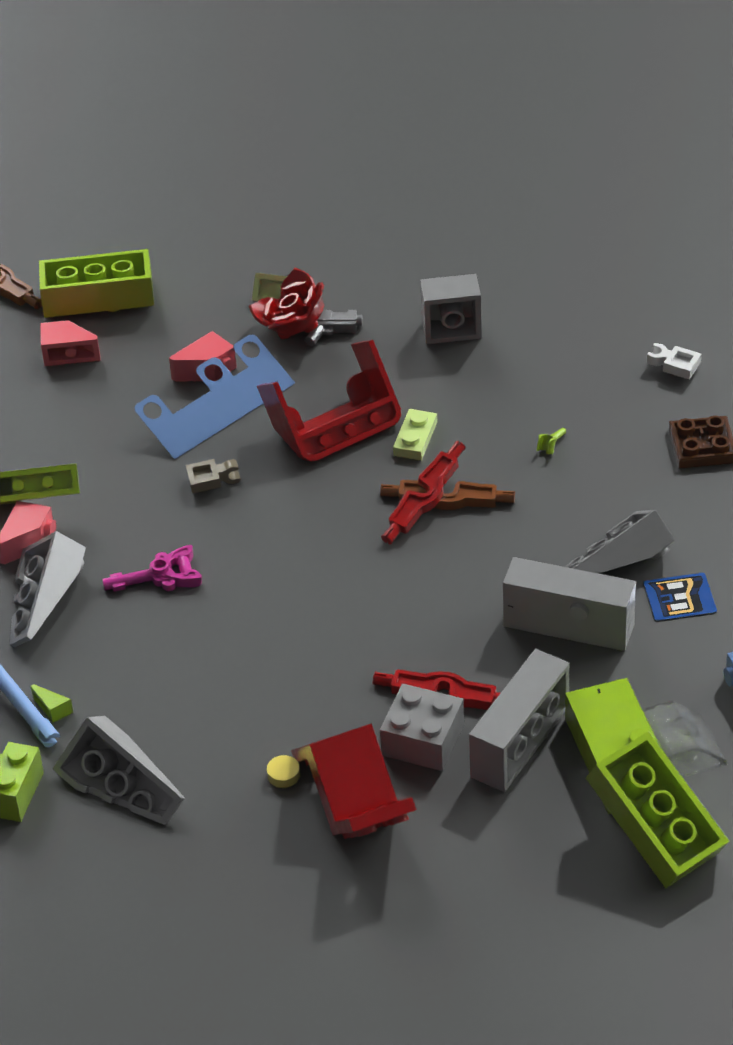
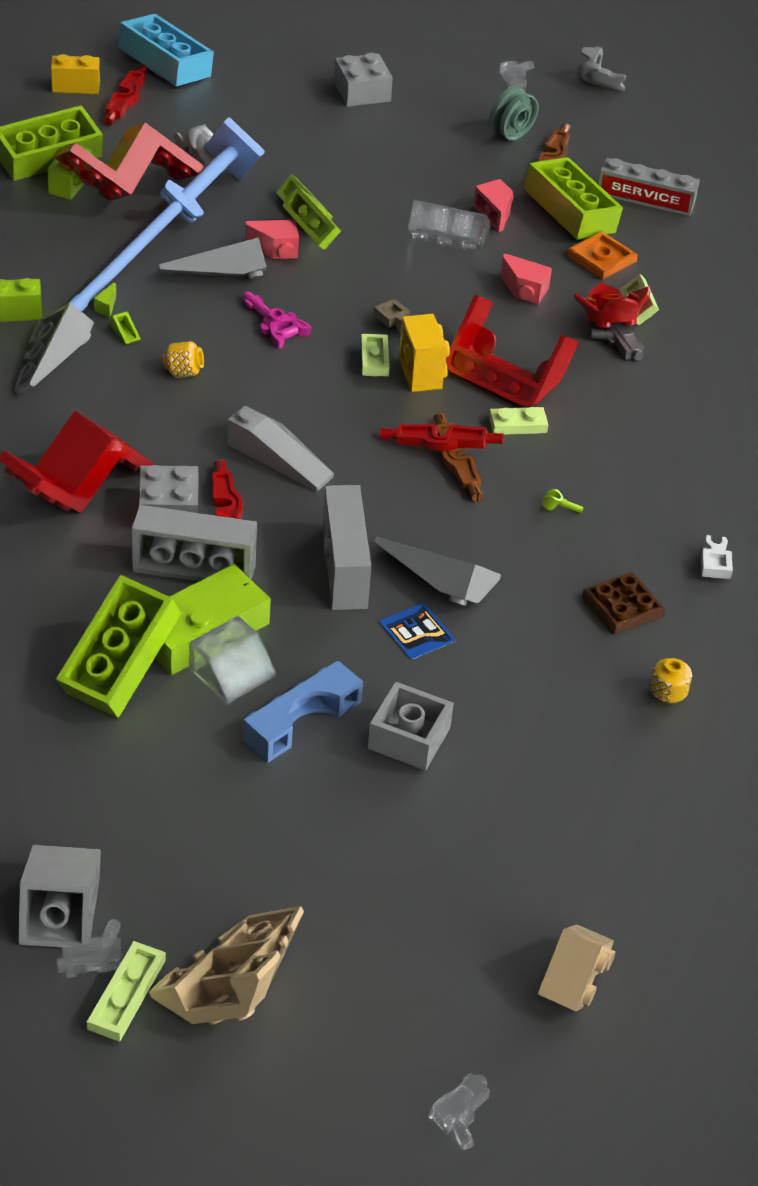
camera: 60 degrees right, 0 degrees up
(85, 389) = (448, 225): none -> clear slope
(105, 700) = (124, 328): none -> lime piece
(108, 222) = (649, 186): none -> brick
(187, 296) = (602, 255): none -> orange tile
(197, 660) = (183, 359): none -> yellow head
(220, 407) = (506, 313): medium blue piece -> none
(264, 508) = (375, 355): none -> yellowish green plate
(298, 464) = (423, 352): none -> yellow brick
(363, 629) = (276, 448): none -> light grey wedge
(451, 308) = (672, 394): light grey brick -> none

